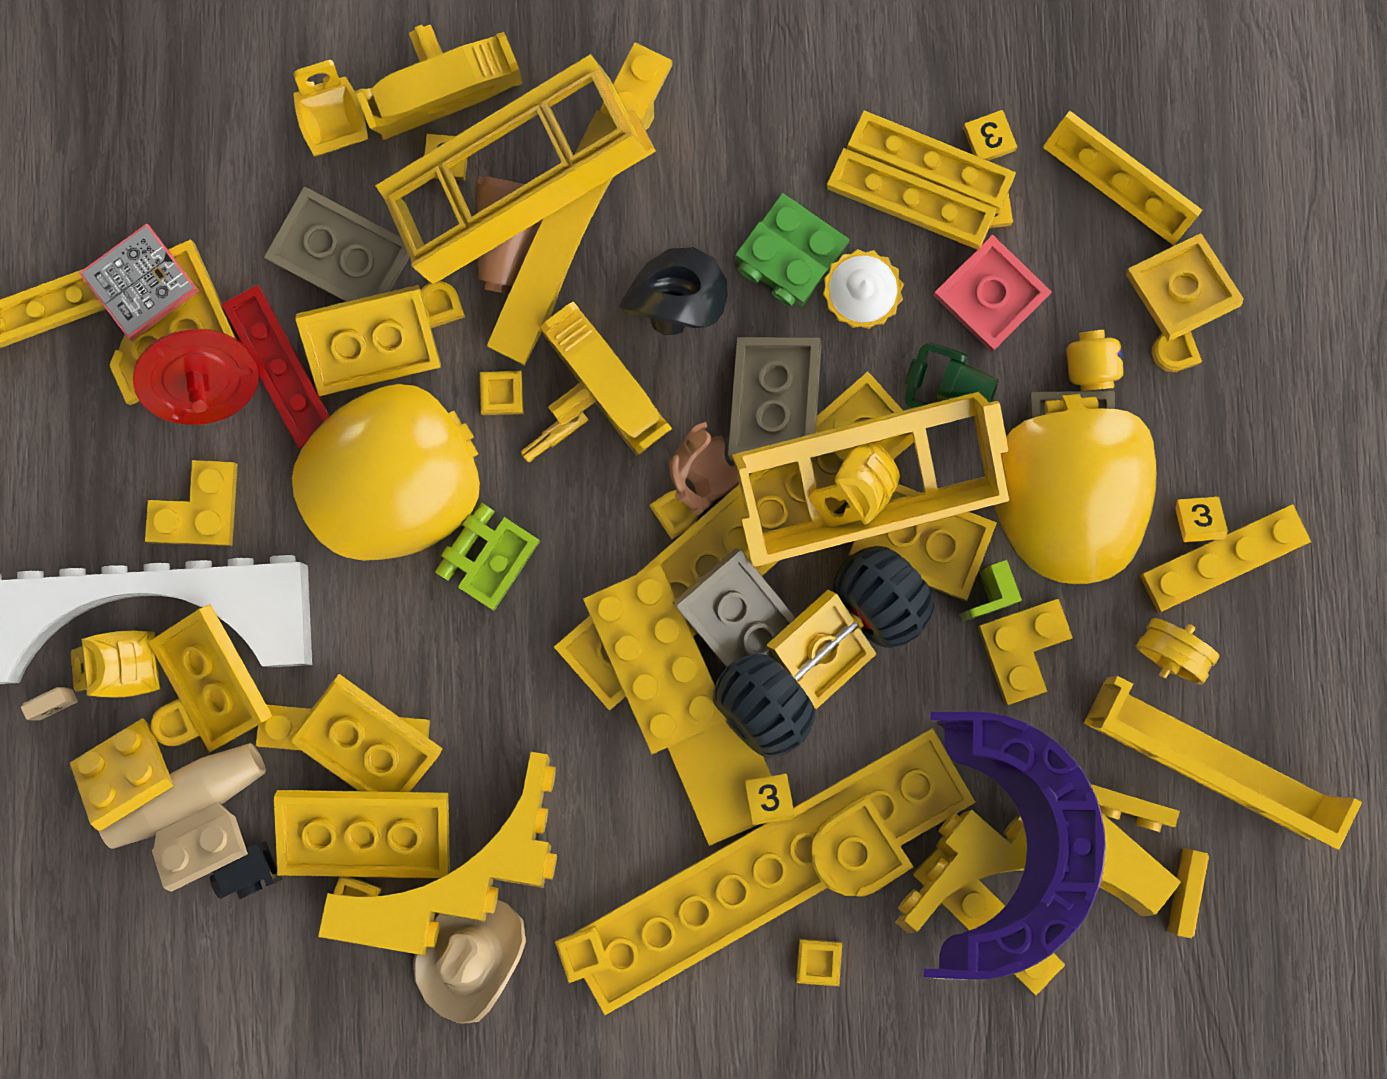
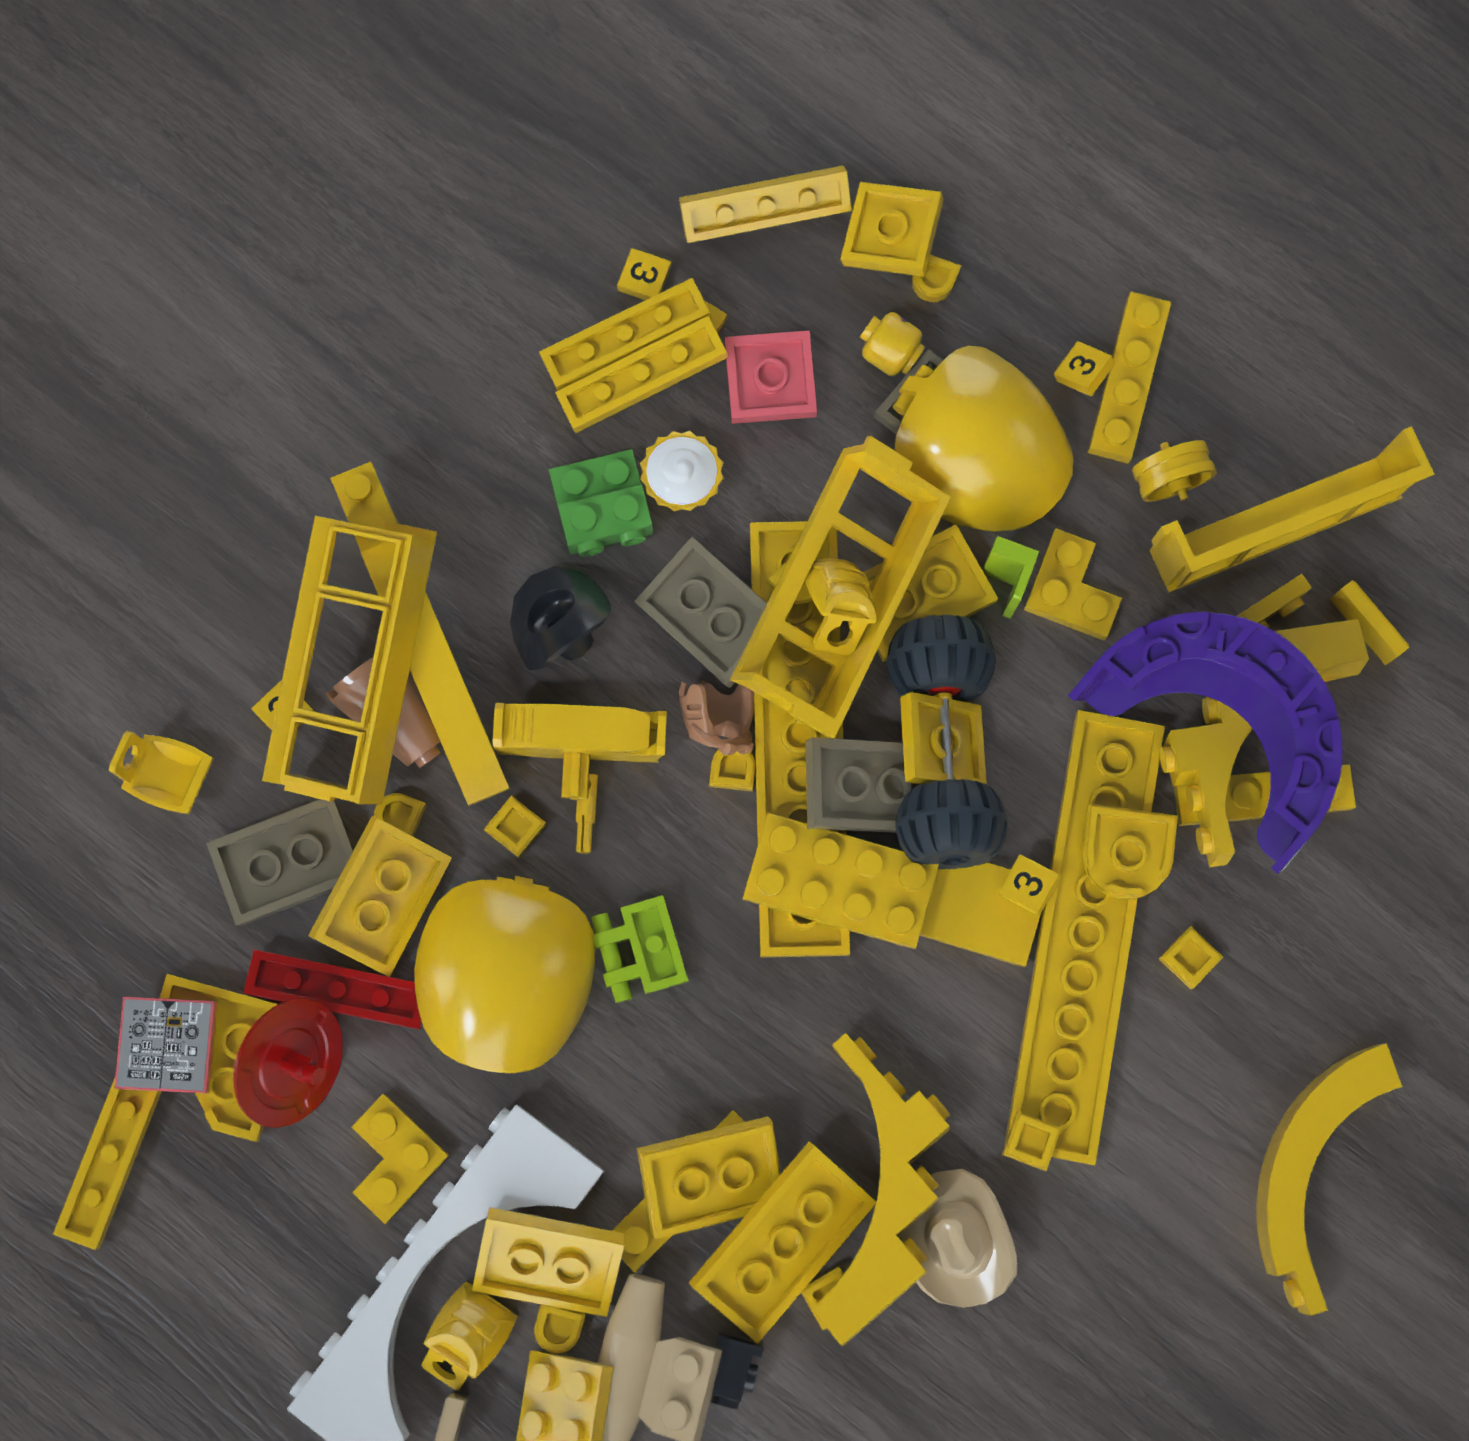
camera: 50 degrees left, 5 degrees down
(438, 82) = (219, 661): yellow piece -> none
(957, 380) = (818, 456): dark green piece -> none

